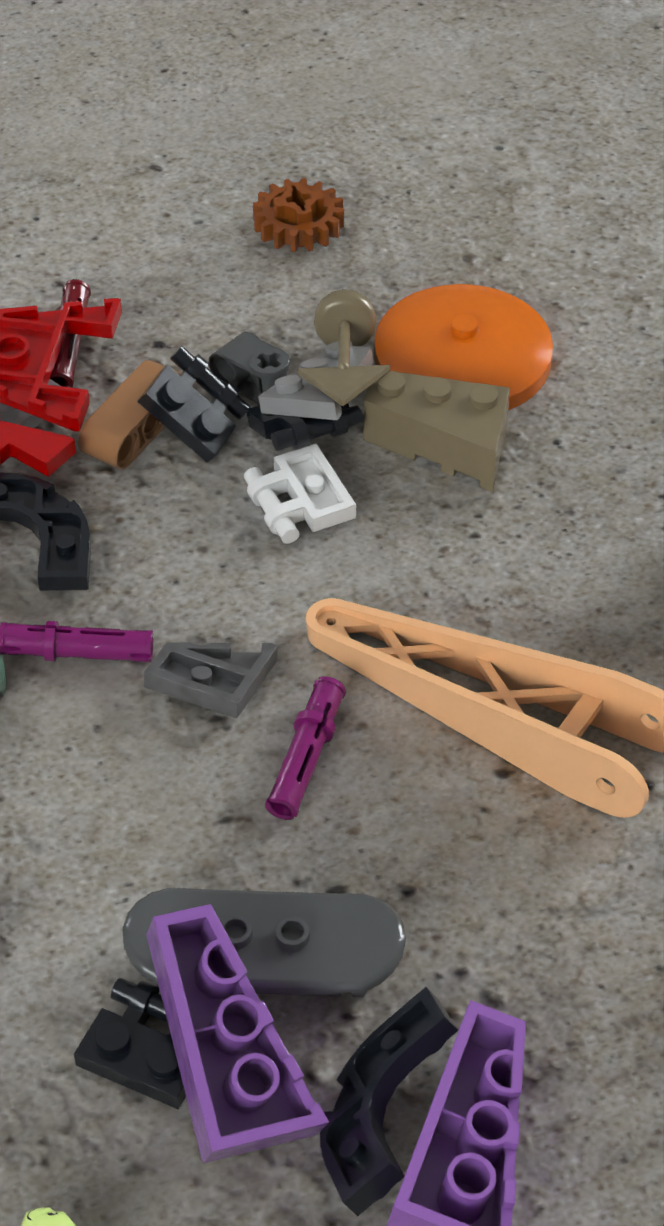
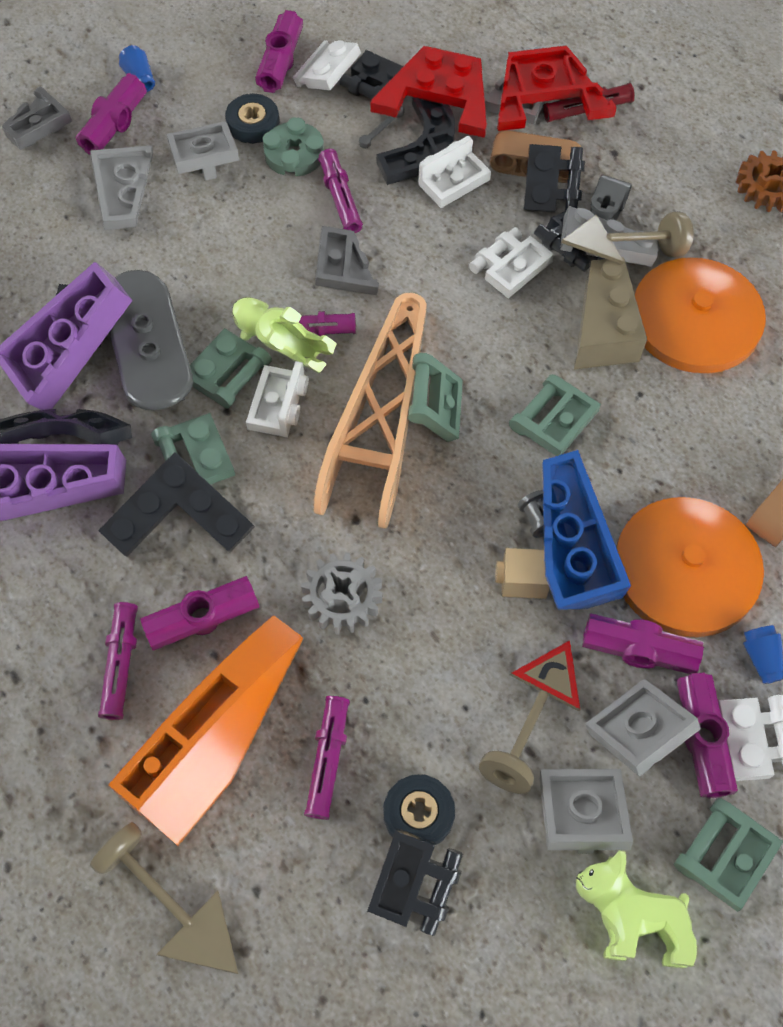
camera: 70 degrees right, 15 degrees up
(120, 507) = (452, 172): none -> white bracket
(315, 866) = (220, 361): none -> sand green plate
(335, 757) = (281, 332): none -> yellowish green animal
(430, 807) = (277, 399): none -> white bracket
(476, 930) = (202, 444): none -> sand green plate
(493, 623) = (445, 397): none -> sand green plate
(544, 971) = (171, 486): none -> black plate
(577, 514) = (563, 422): none -> sand green plate

